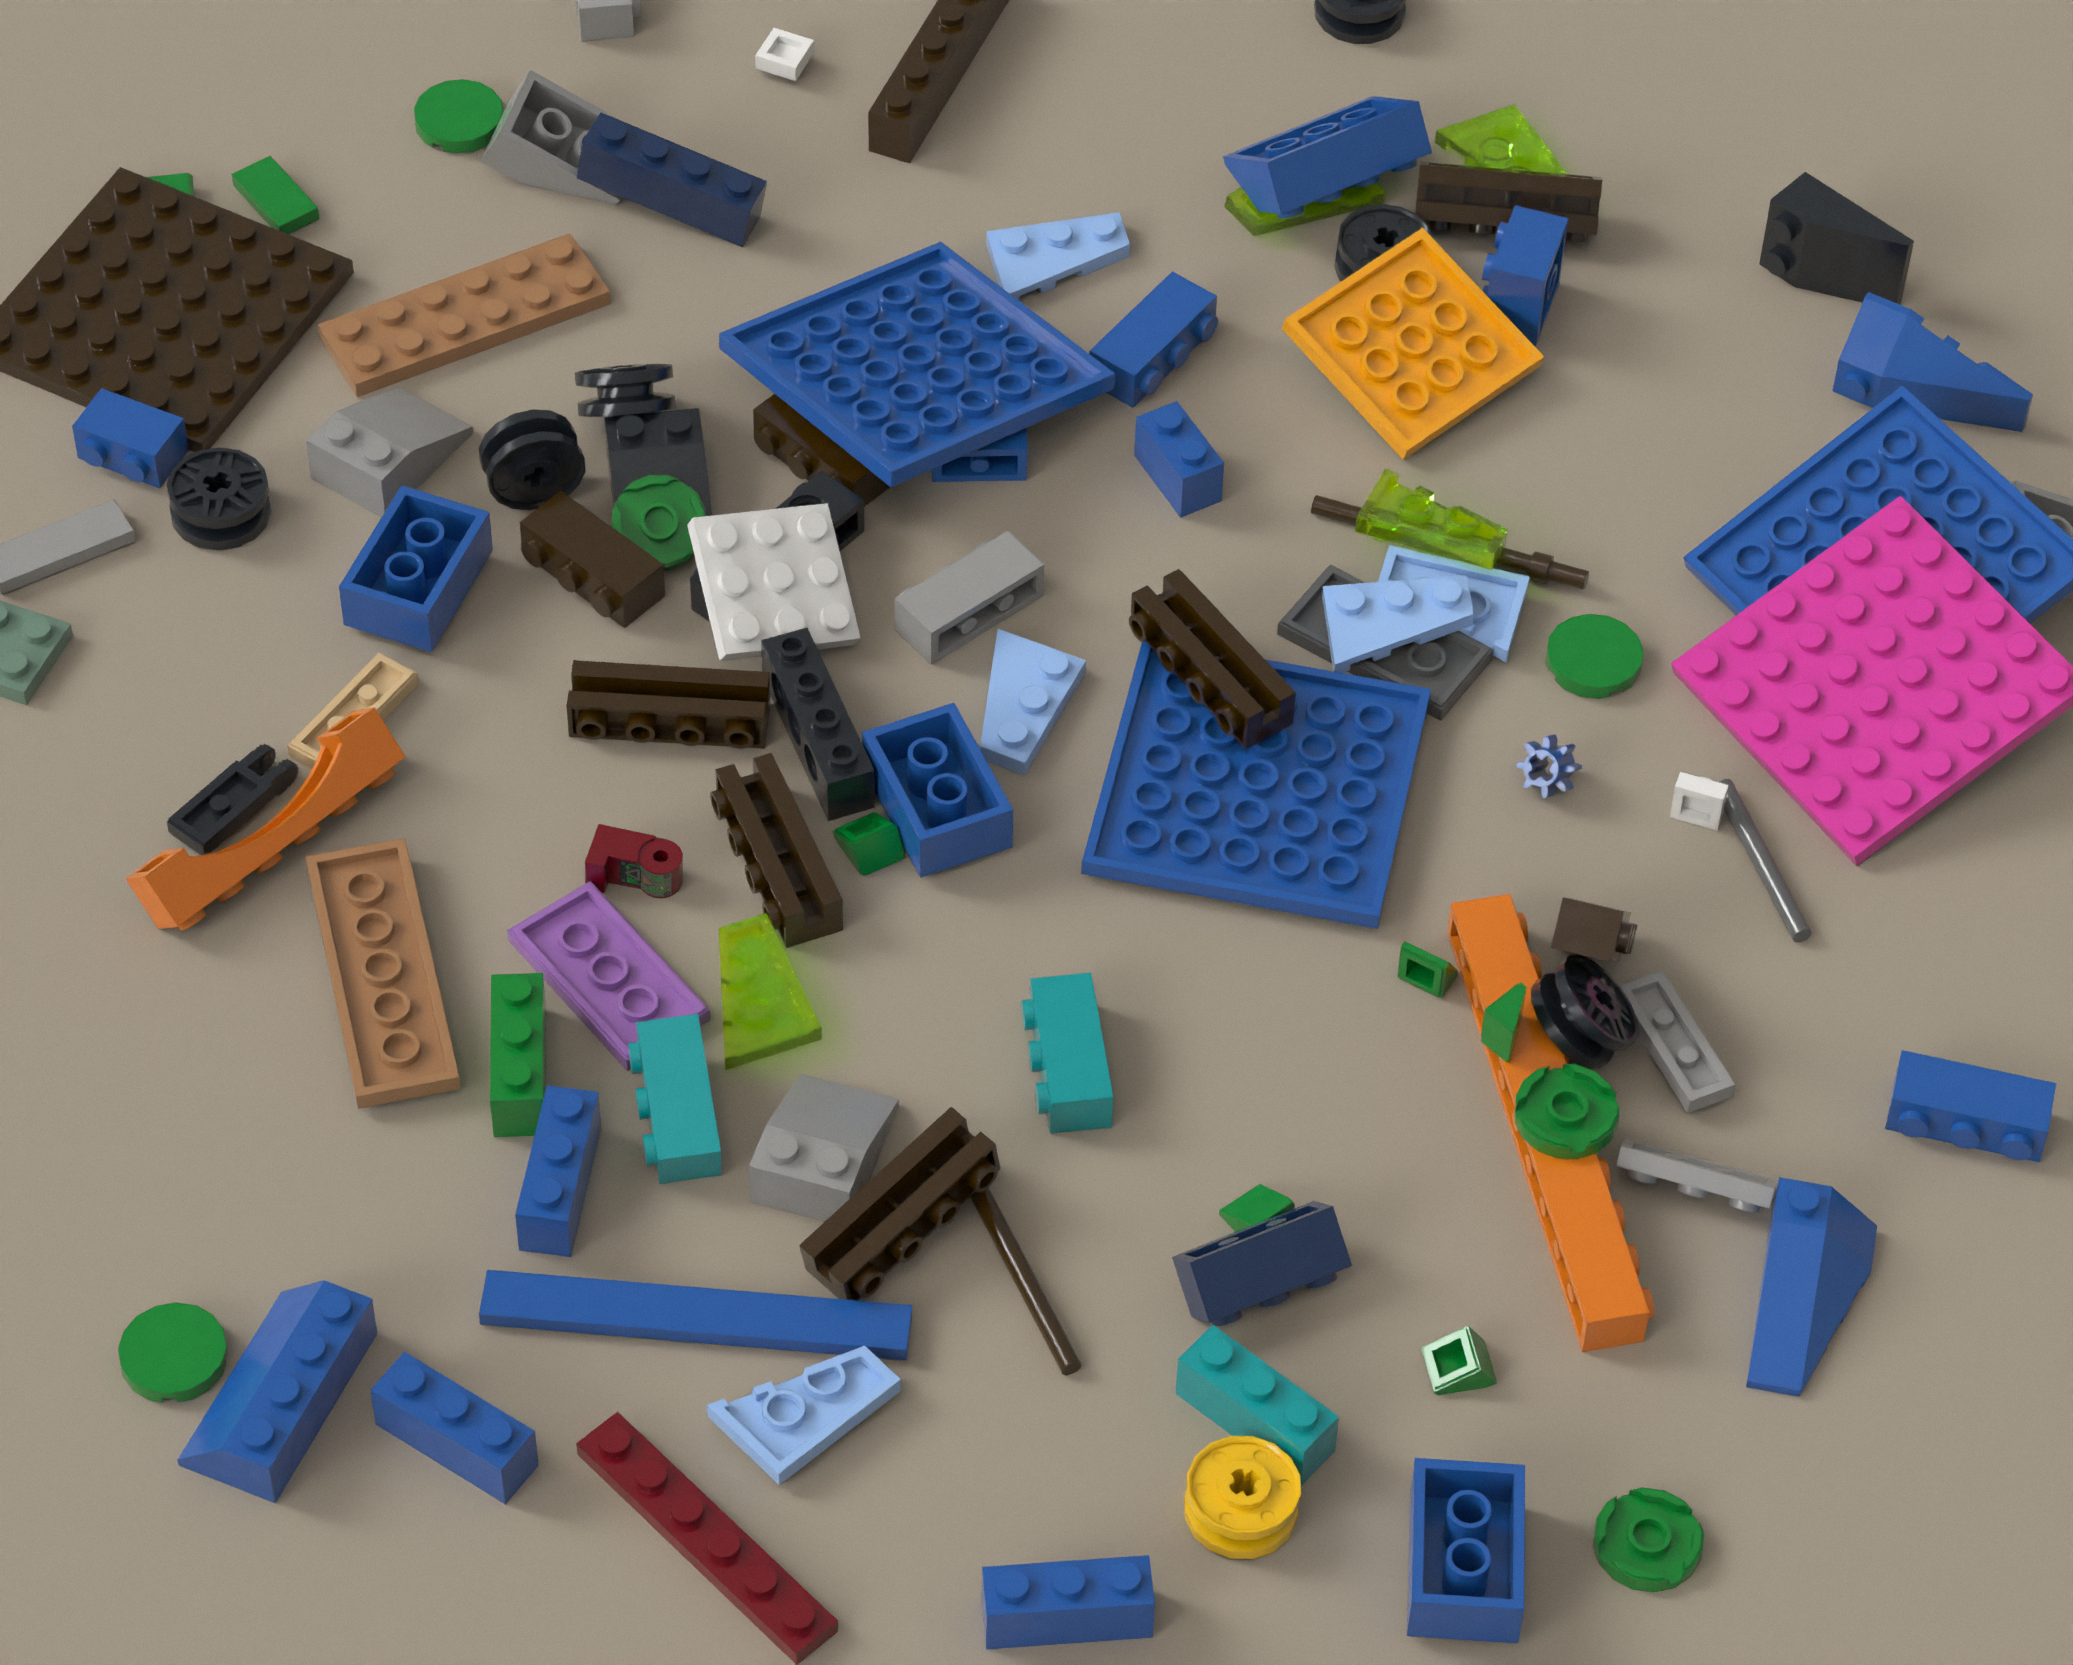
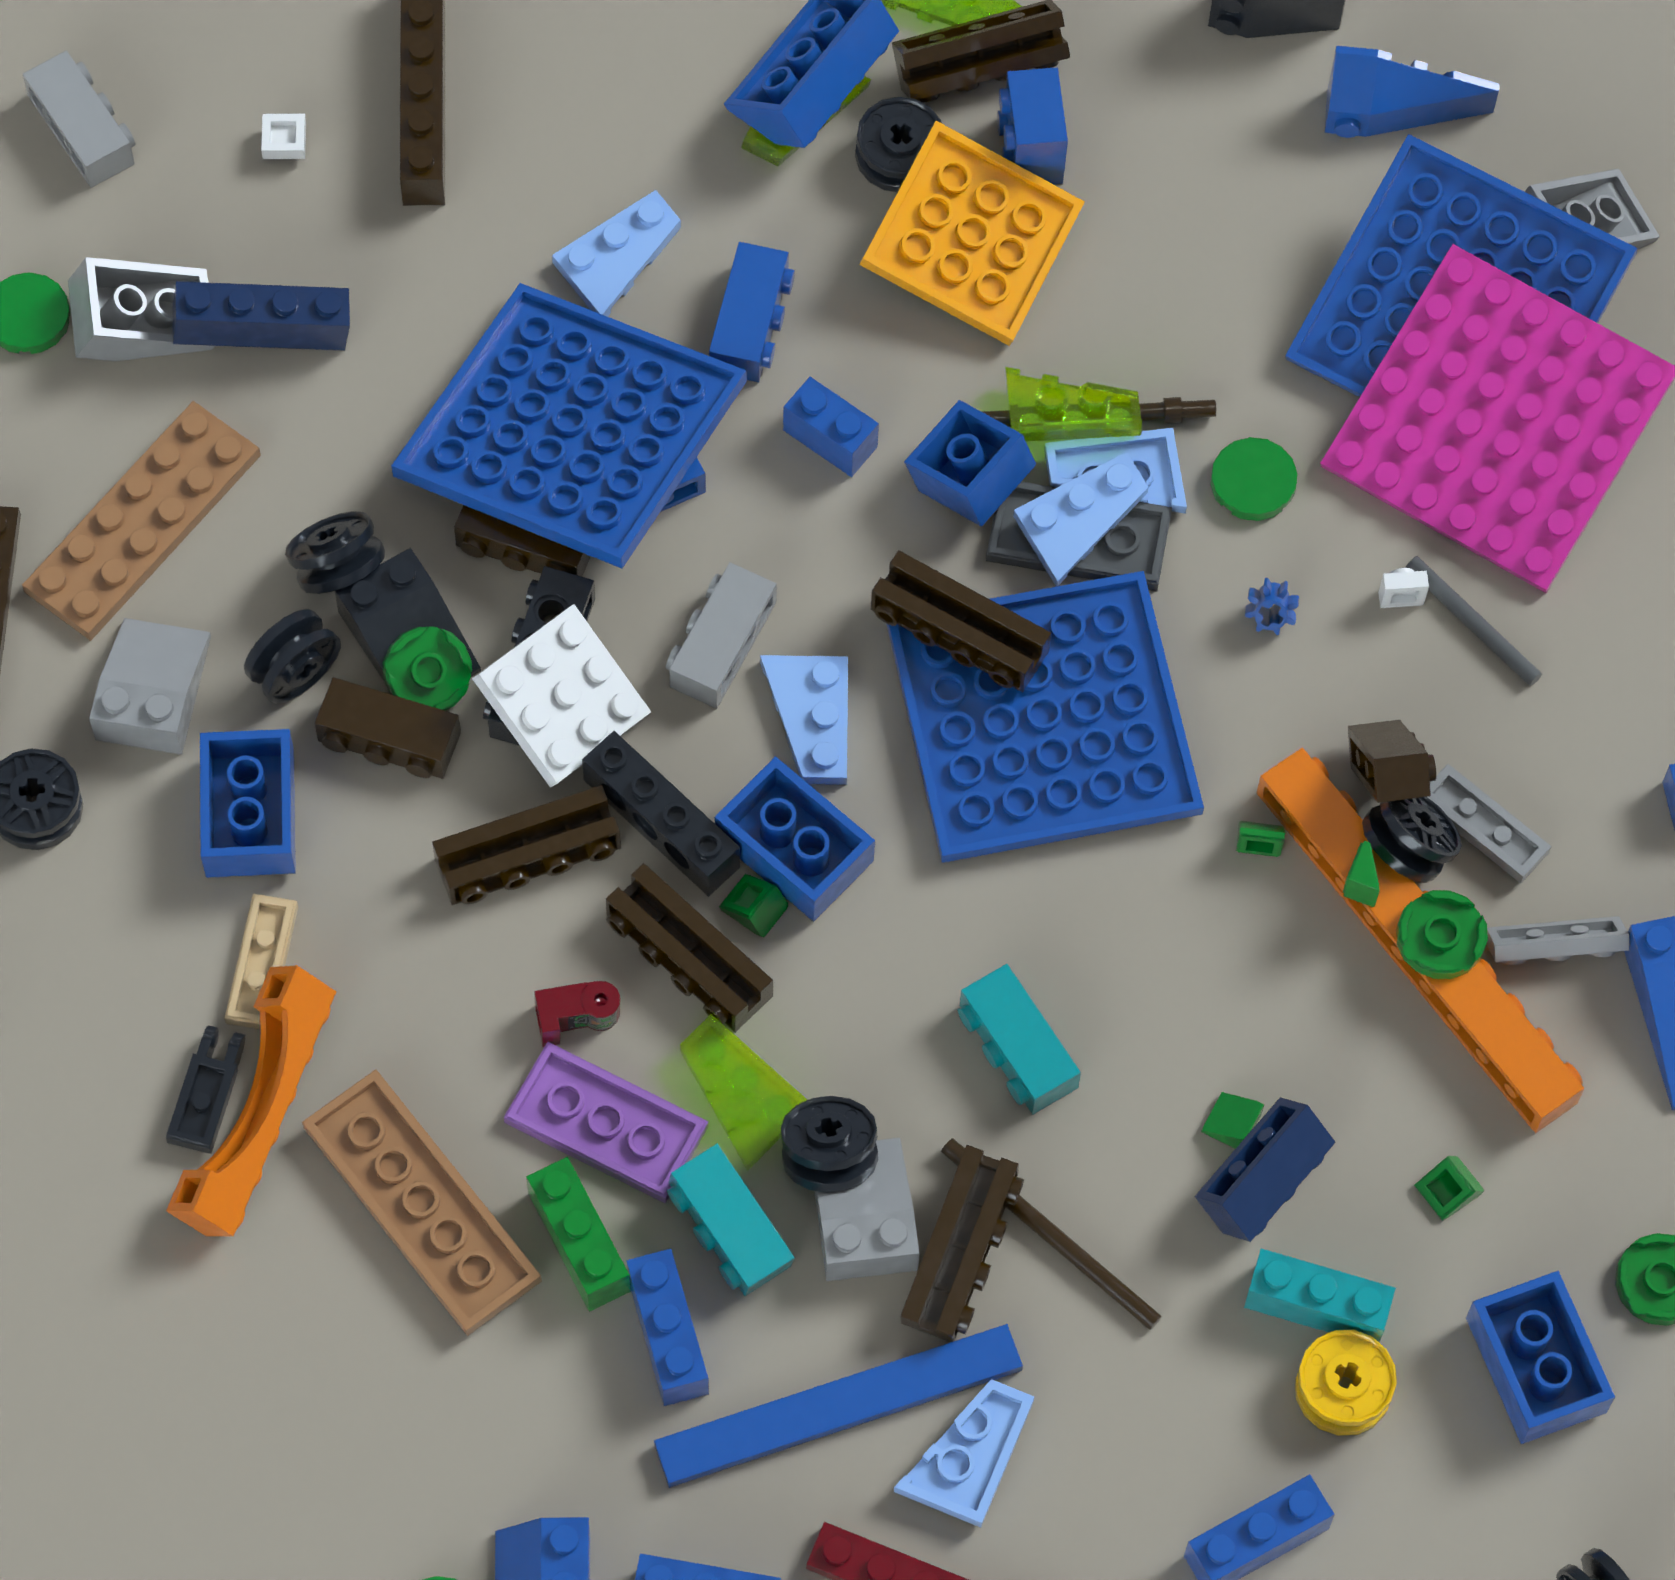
camera: 25 degrees left, 15 degrees up
(816, 1066) = (829, 1144): none -> black wheel
(1300, 531) = (970, 463): none -> blue brick

